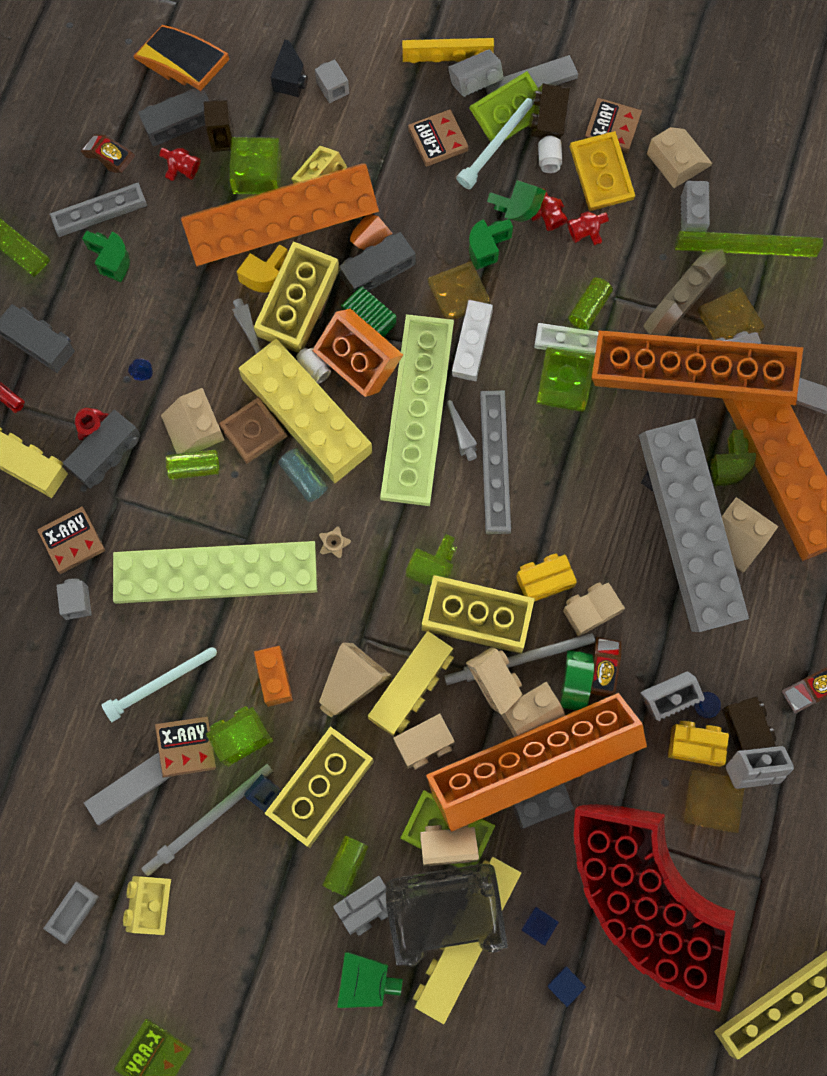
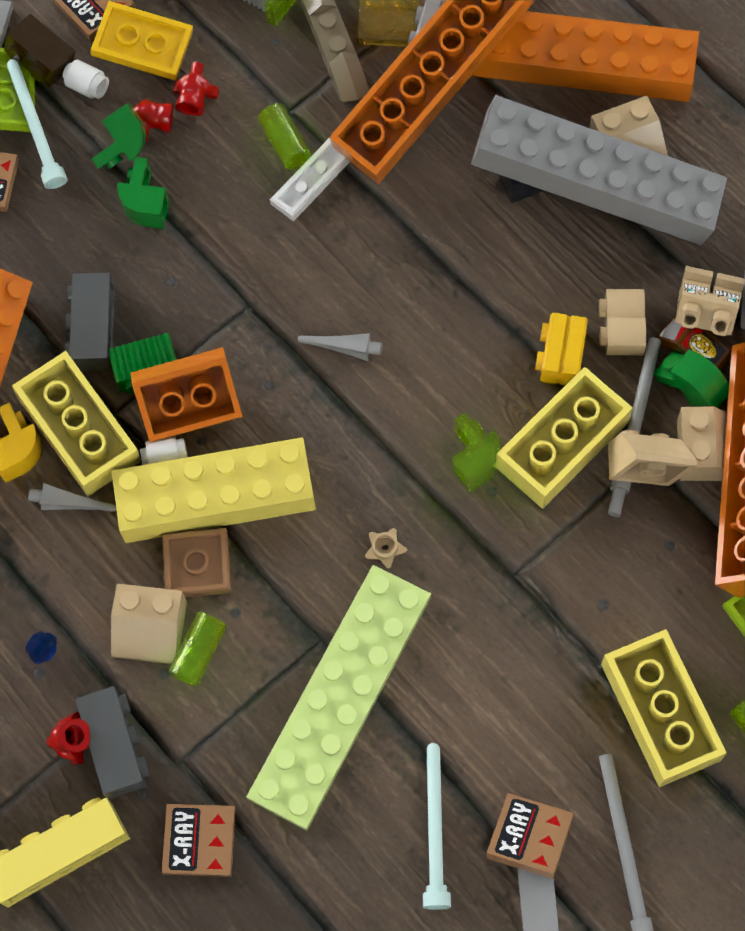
camera: 55 degrees left, 5 degrees down
(73, 599) = (276, 872): light grey brick -> none
(238, 736) = (557, 763): clear neon green brick -> none
(262, 793) = (632, 776): dark blue plate -> none
(273, 676) = (505, 692): orange brick -> none
(302, 475) = (287, 535): clear light blue pin -> none
(350, 679) = (560, 610): tan slope -> none
(369, 232) = (46, 309): orange brick -> none
(411, 683) = (599, 550): light yellow brick -> none
(417, 410) = (290, 374): yellowish green plate -> none
(424, 742) = (672, 572): tan brick -> none
(455, 288) = (180, 257): clear yellow plate -> none
(472, 340) = (250, 271): white brick -> none
(495, 462) = (399, 330): light grey tile -> none
(565, 379) = (355, 205): clear neon green brick -> none
(636, 658) = (708, 310): none -> tan hips
(733, 467) = (549, 97): clear neon green brick -> none

